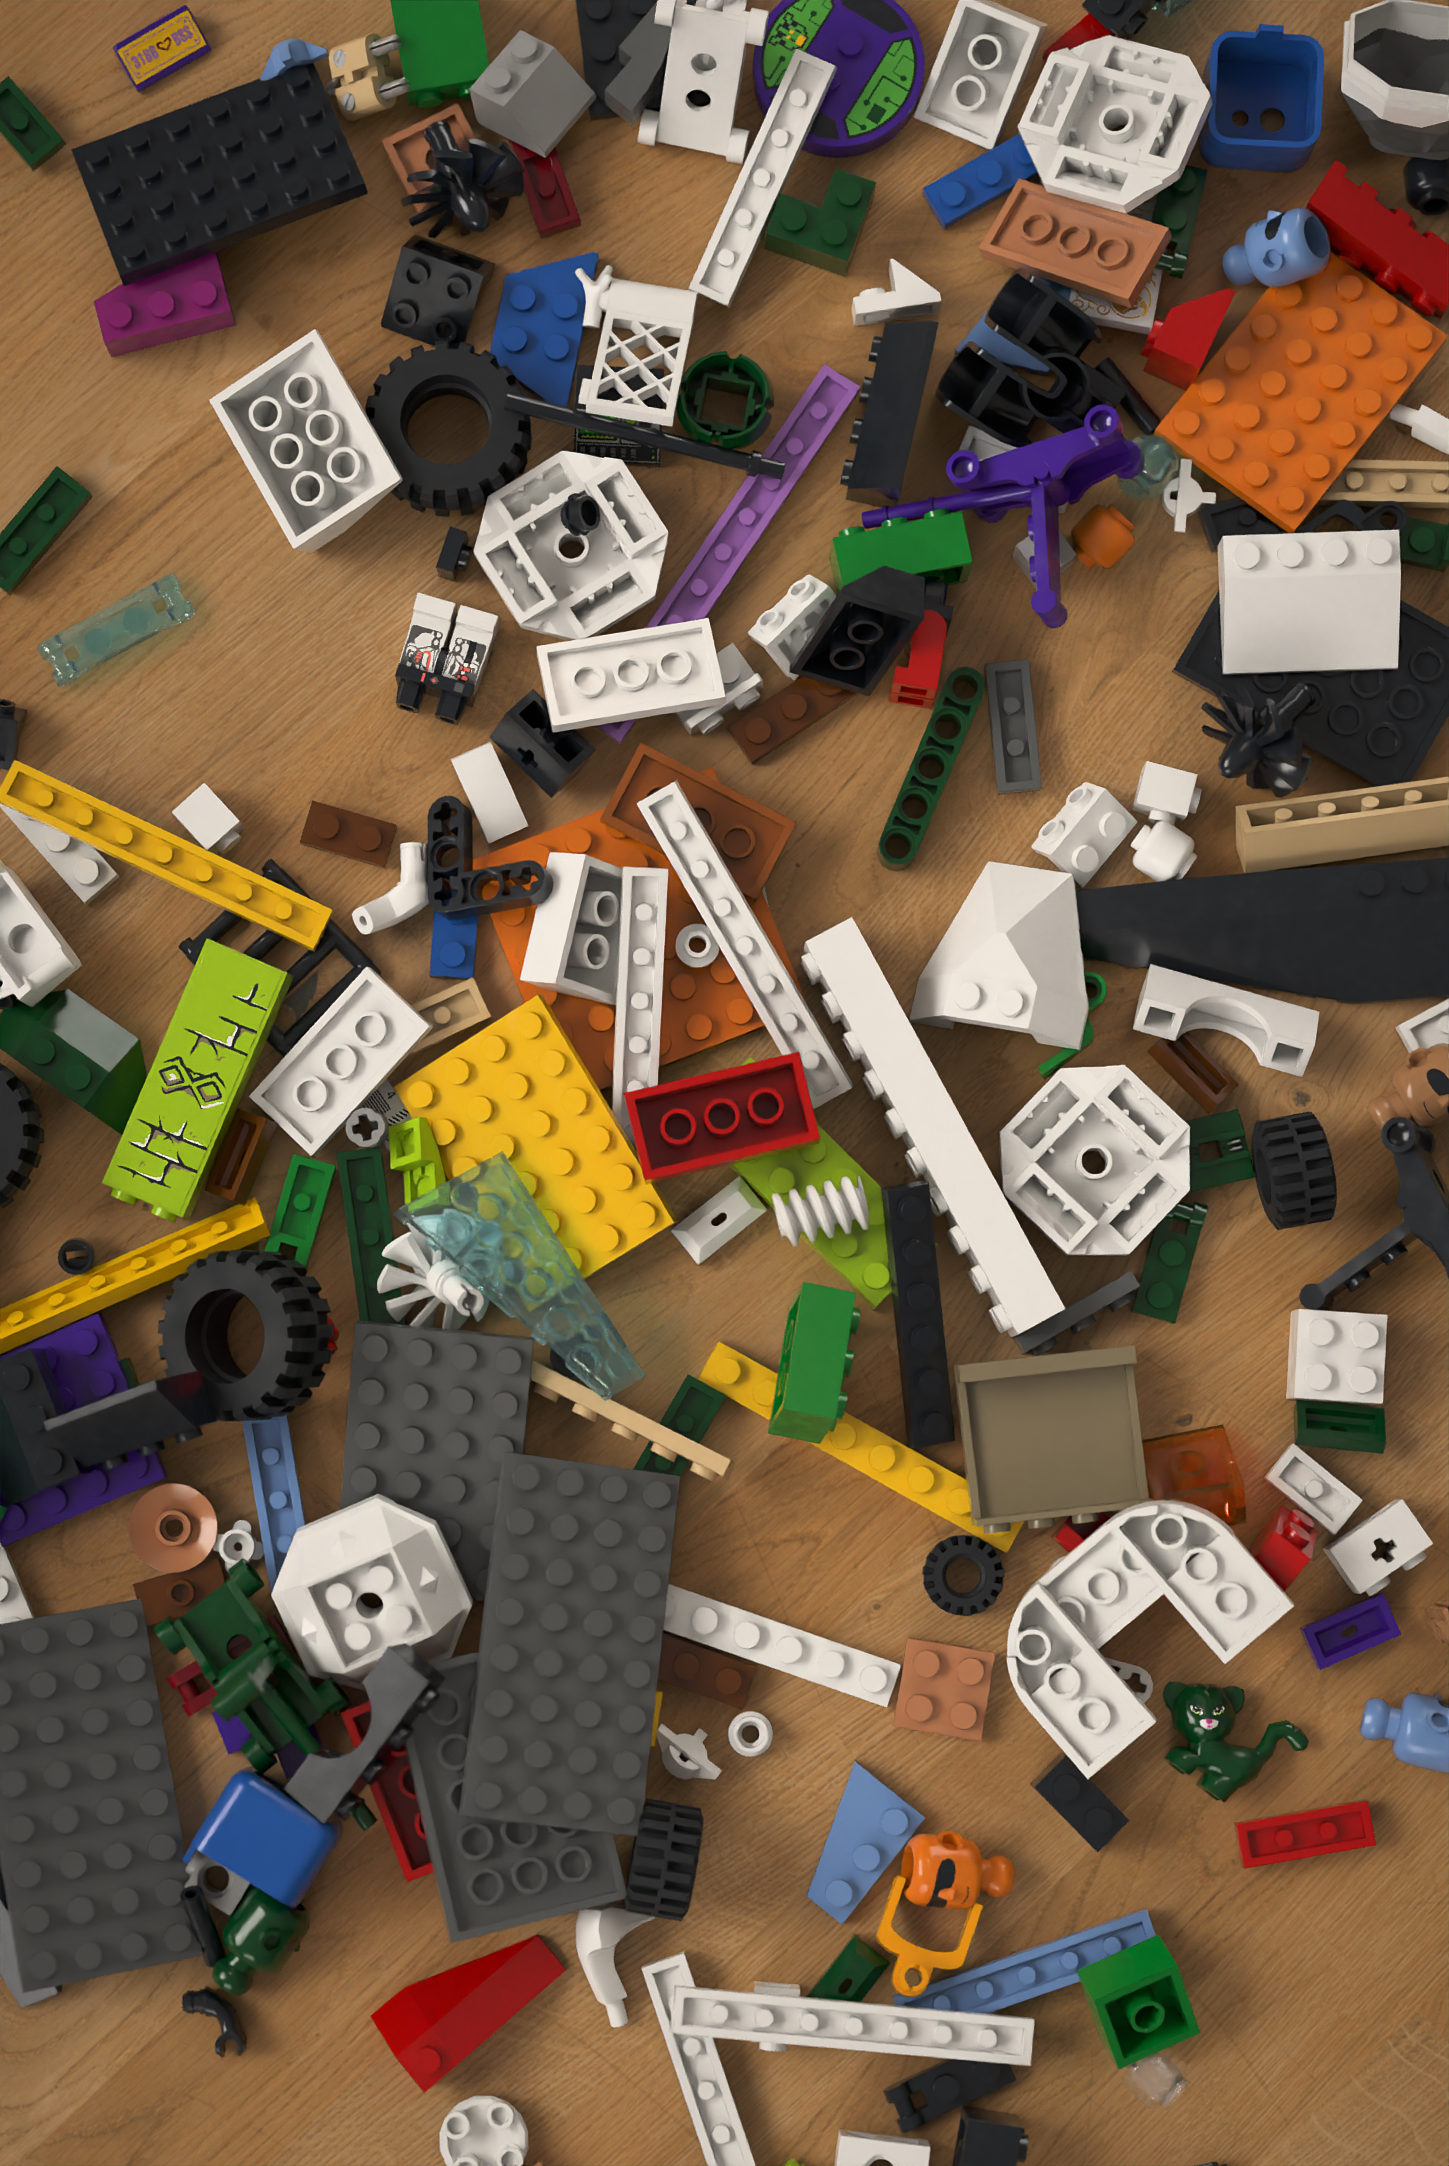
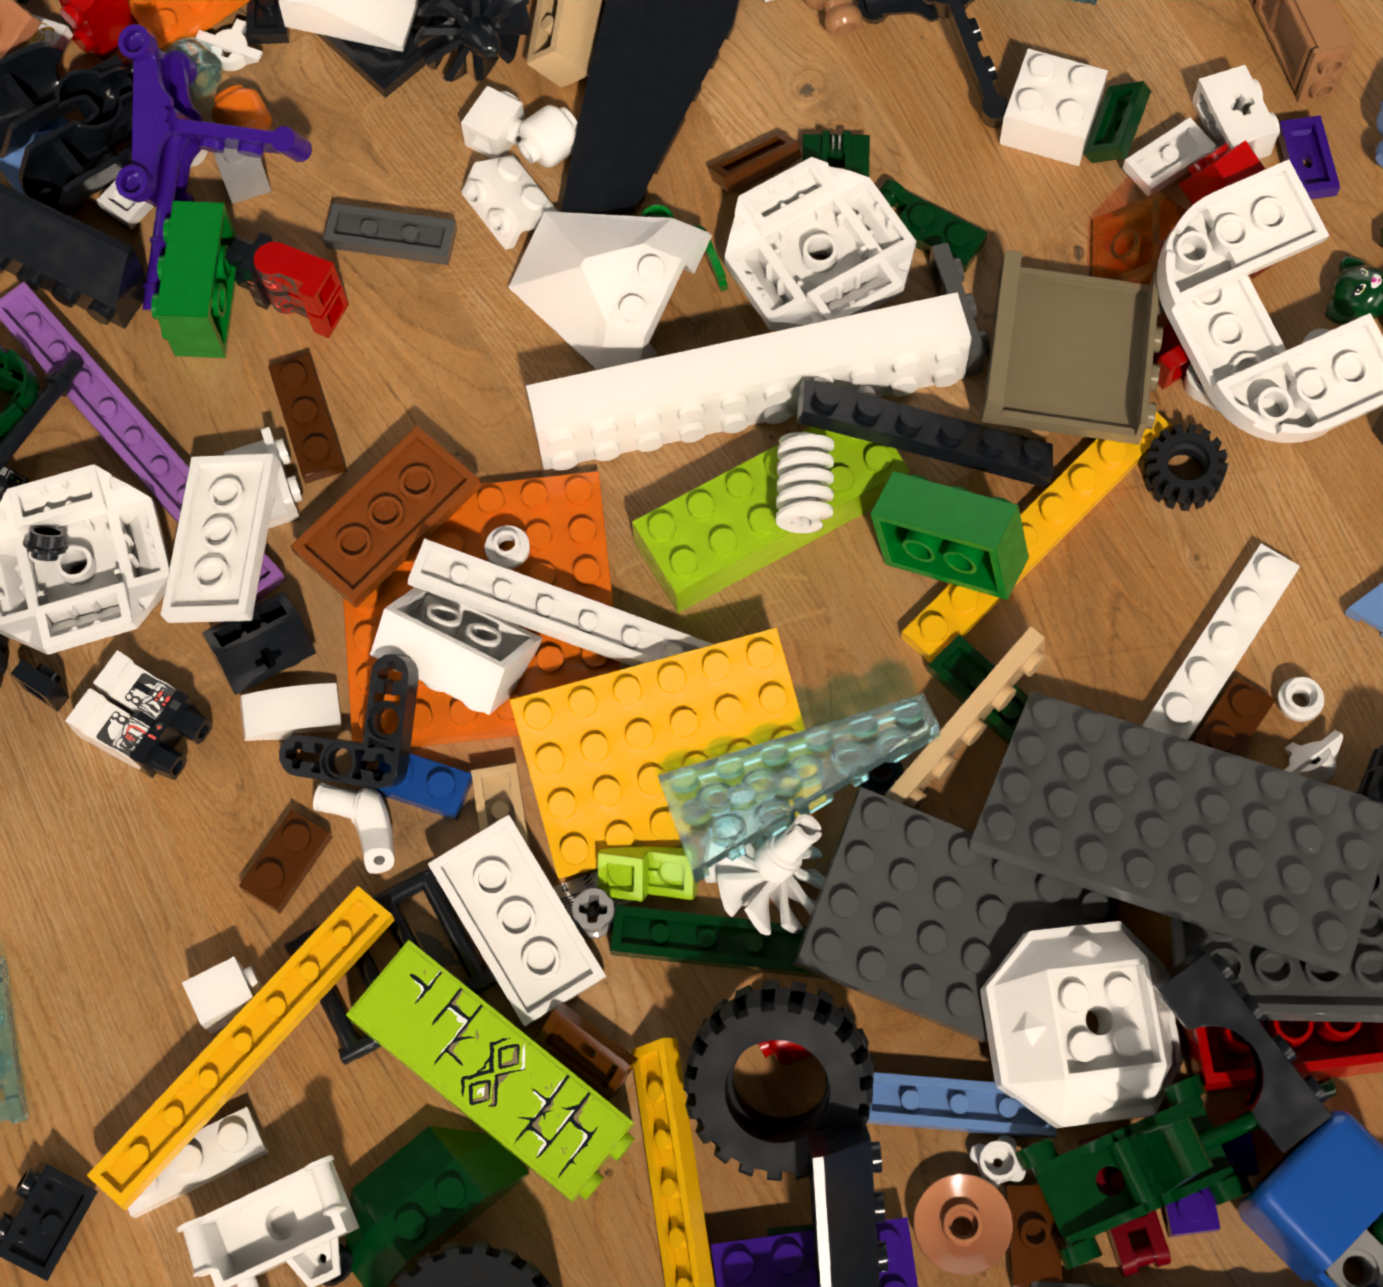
camera: 65 degrees left, 15 degrees down
(78, 1264) = (651, 1256): black hinge -> none
(301, 1207) = (653, 1002): green plate -> none
(704, 1239) = (793, 622): white piece -> none
(722, 1118) = (687, 546): red brick -> none
(743, 940) = (518, 498): white plate -> none
(792, 621) = (229, 387): white bracket -> none
(863, 630) = (257, 310): black slope -> none
(934, 748) = (415, 325): dark green beam -> none
(943, 1689) = (1291, 513): nougat plate -> none
(1273, 1029) = (741, 84): white arch -> none
(1294, 1170) = (875, 89): black tyre -> none

